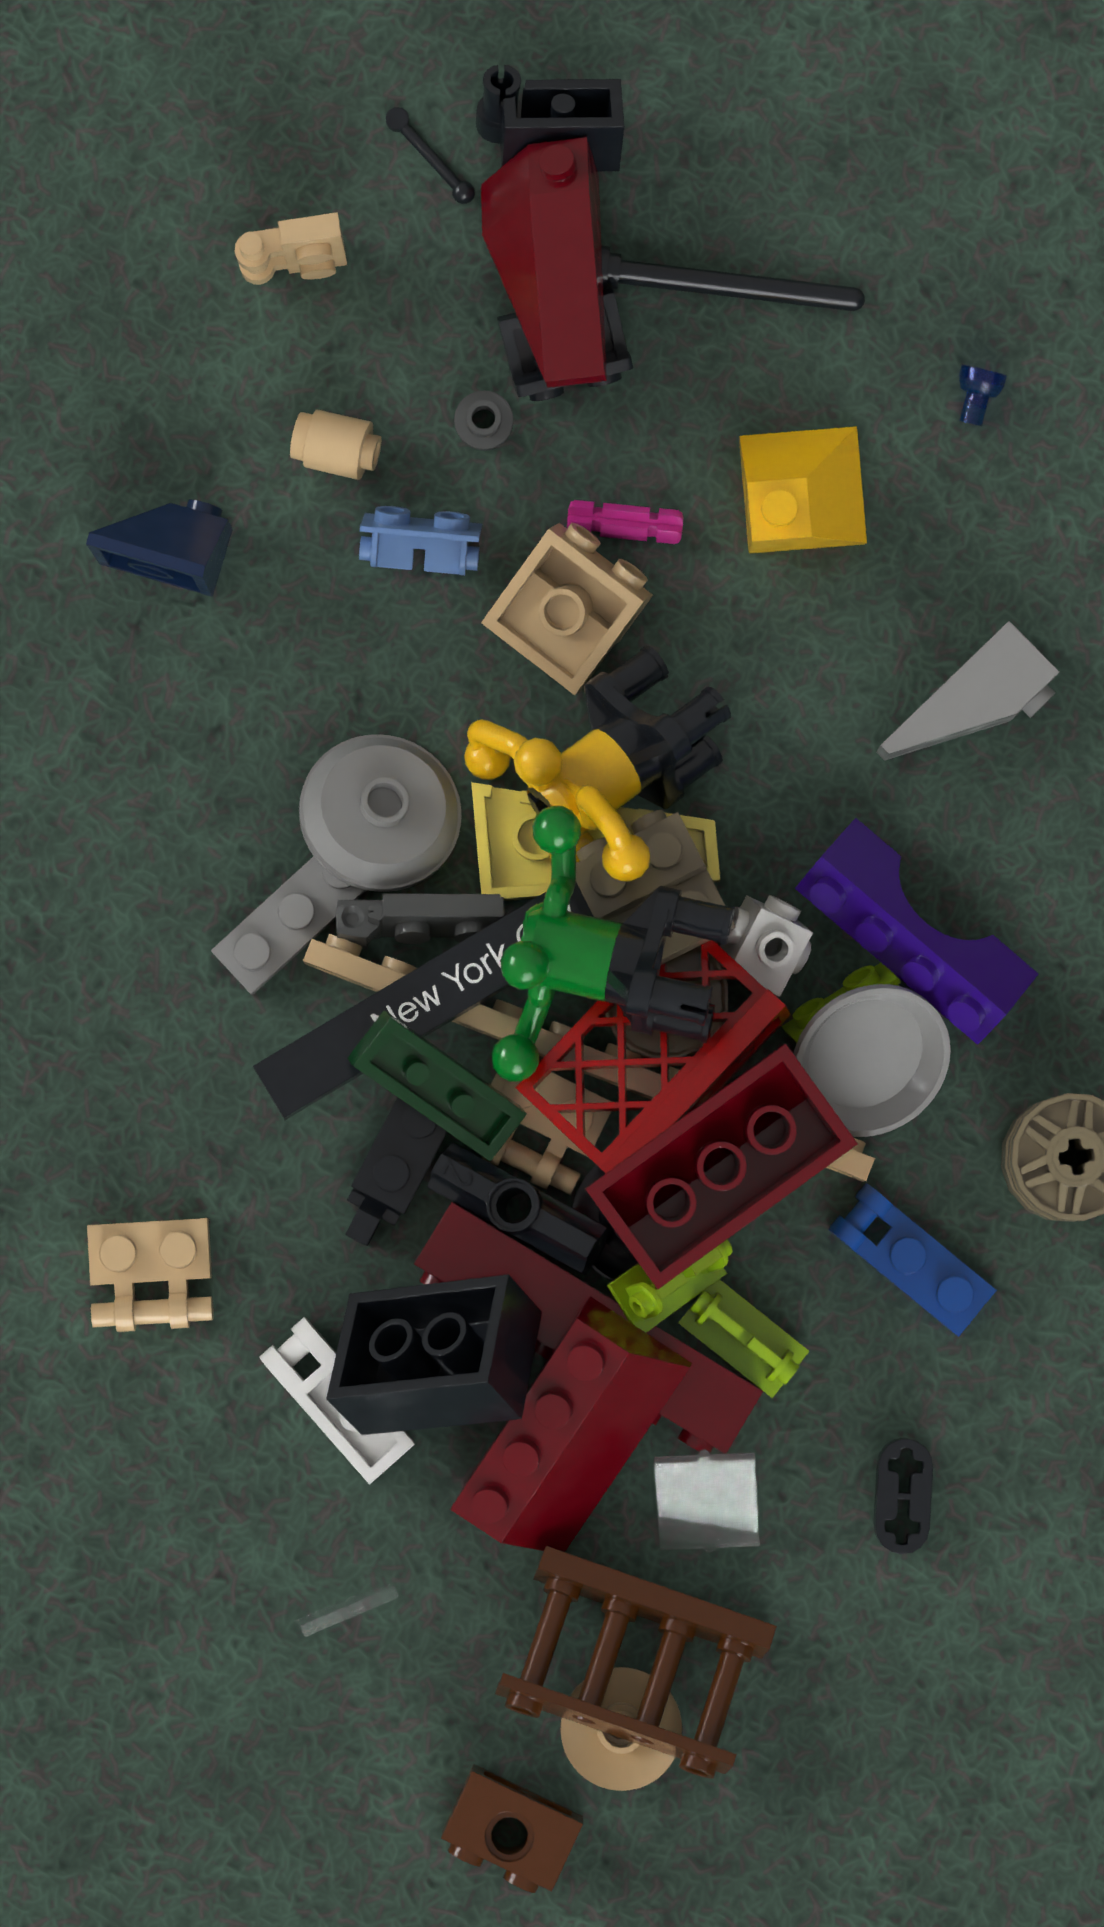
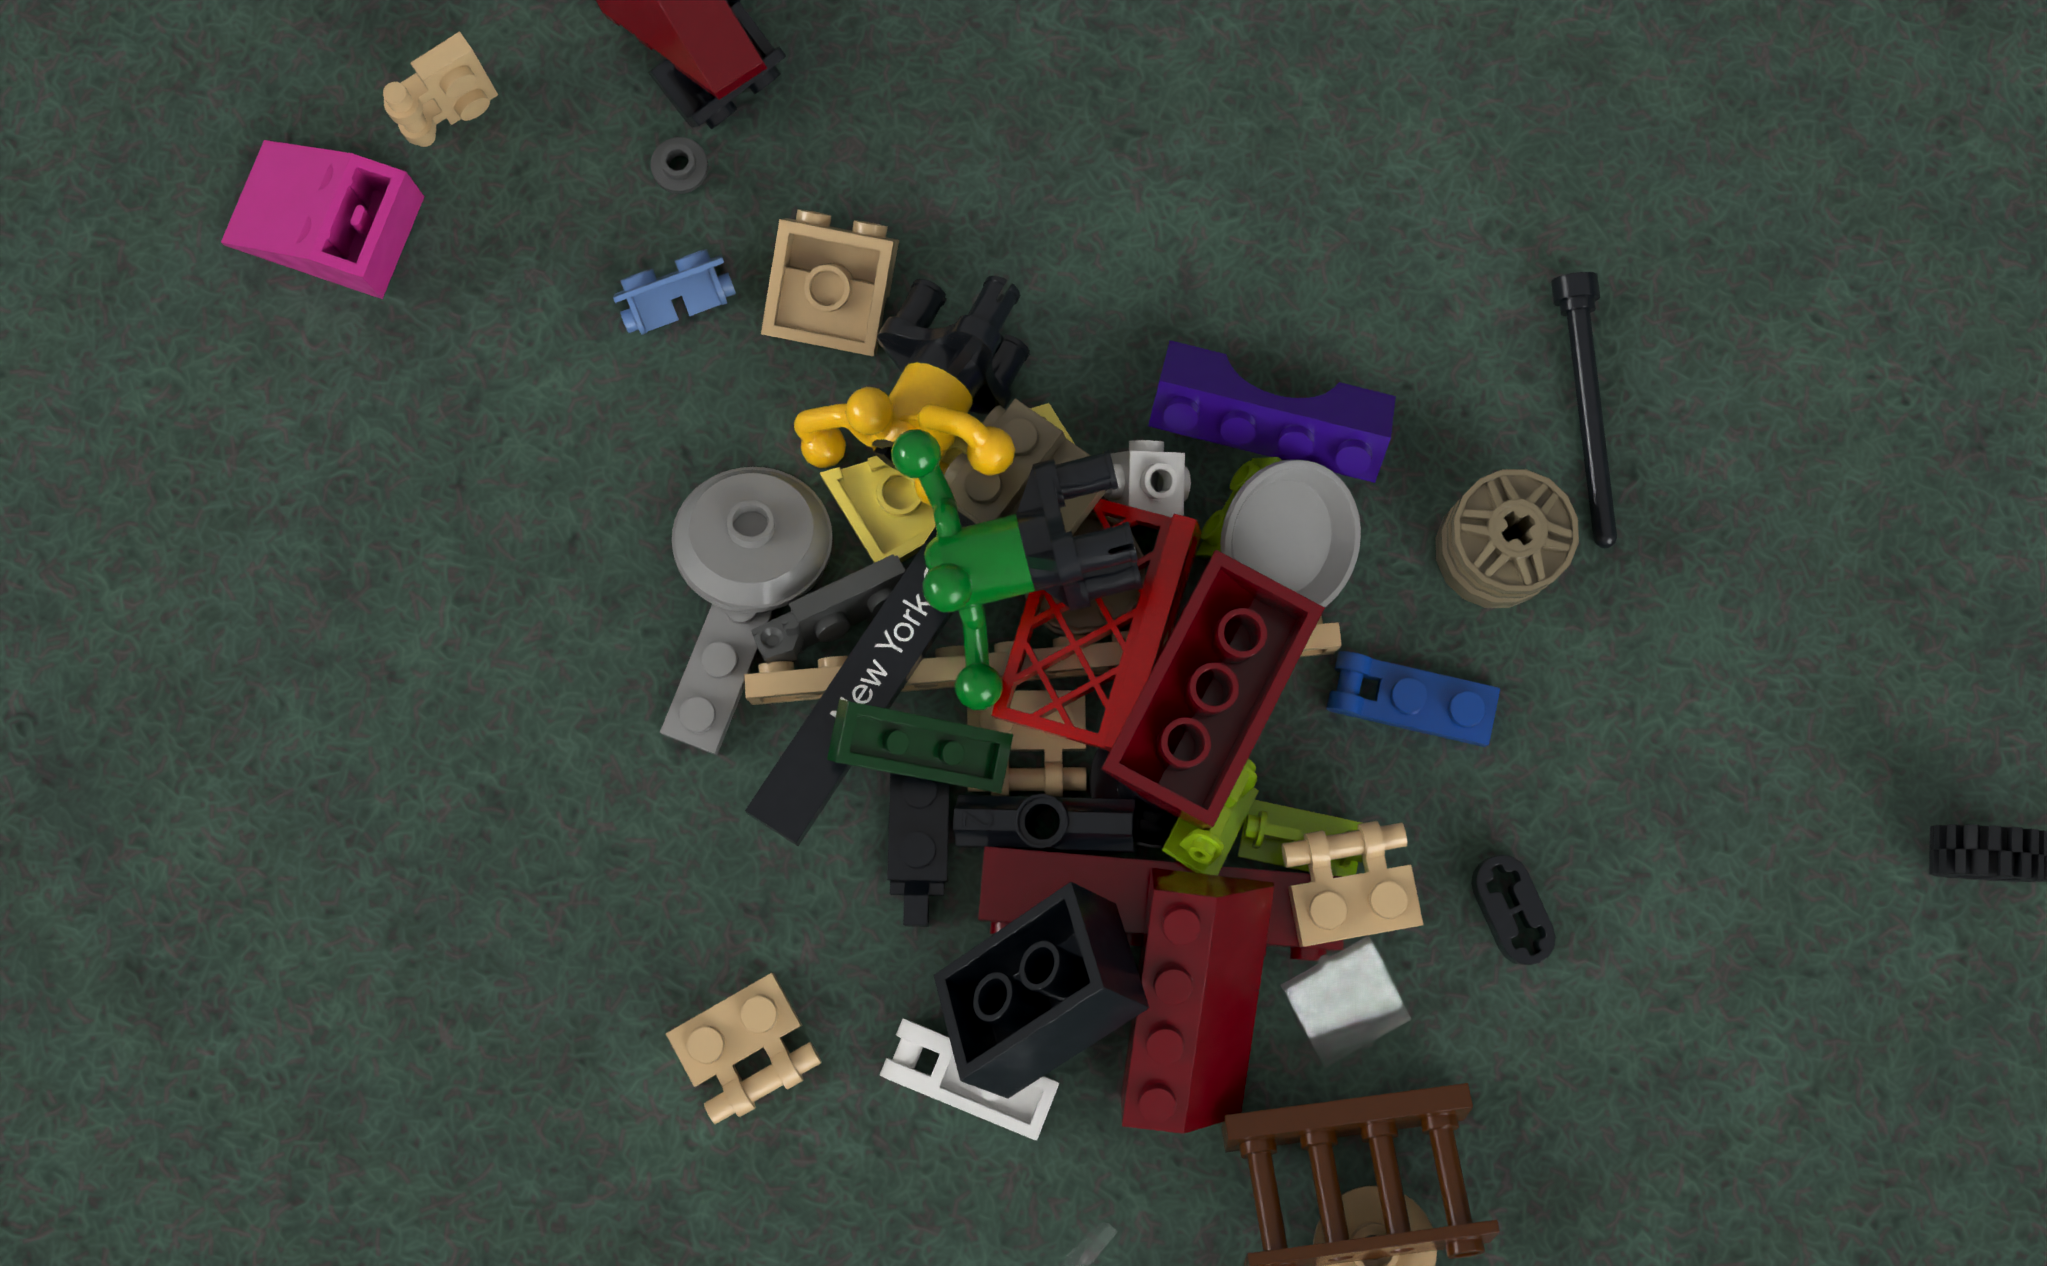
camera: 30 degrees left, 5 degrees down
(130, 309) = (325, 215): none -> dark pink slope
(168, 545) = (448, 398): dark blue slope -> none
(335, 444) = (559, 244): tan brick -> none
(627, 521) = (847, 190): dark pink axle -> none
(755, 1418) = (1357, 903): none -> tan plate
(802, 490) = (982, 96): yellow slope -> none
(985, 692) = (1223, 189): light grey slope -> none

